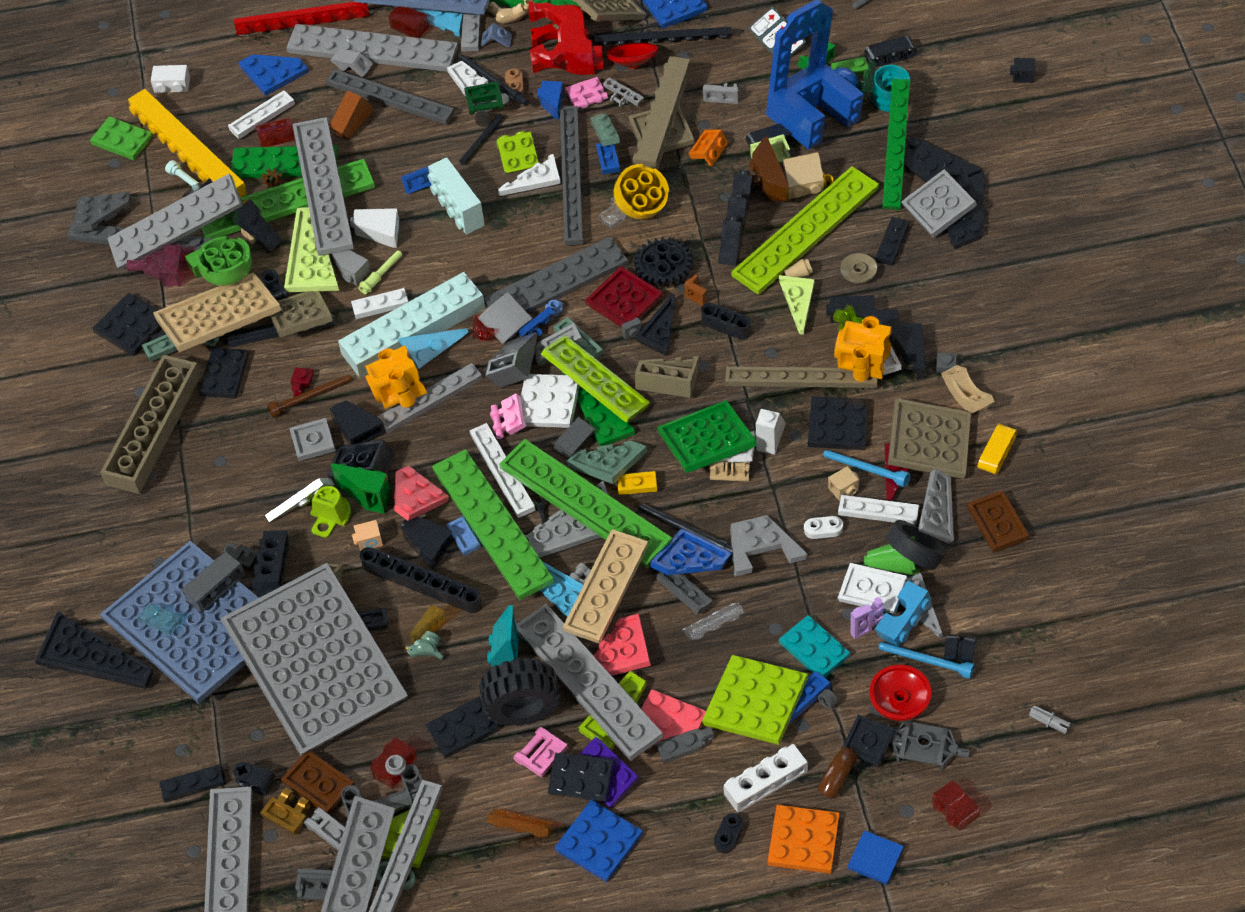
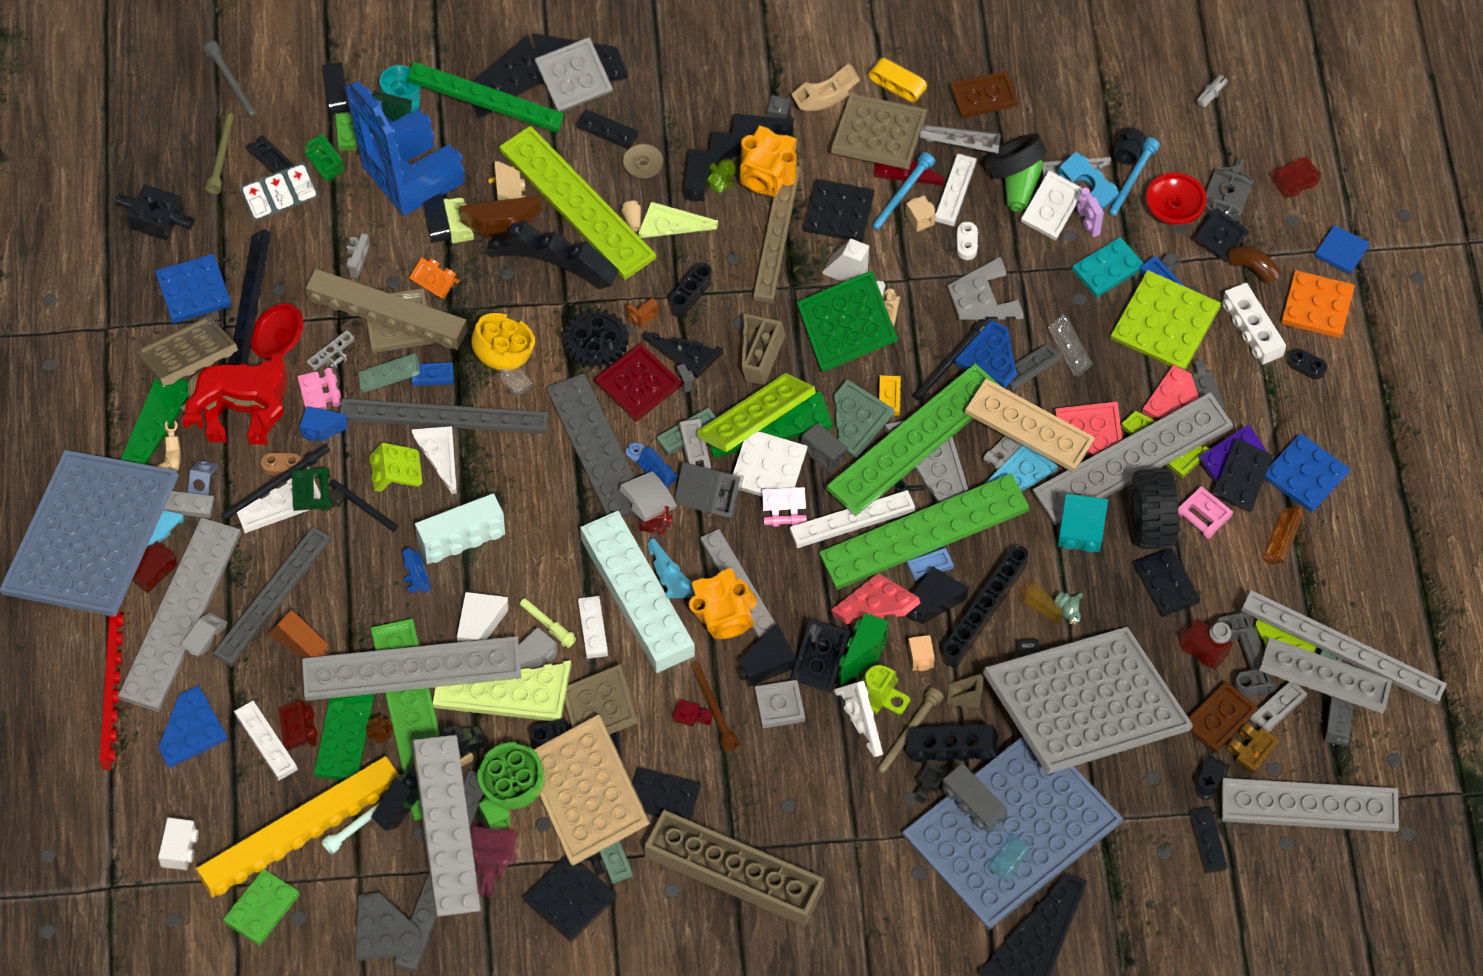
camera: 90 degrees left, 5 degrees up
(323, 550) = (933, 698): none -> dark tan piece

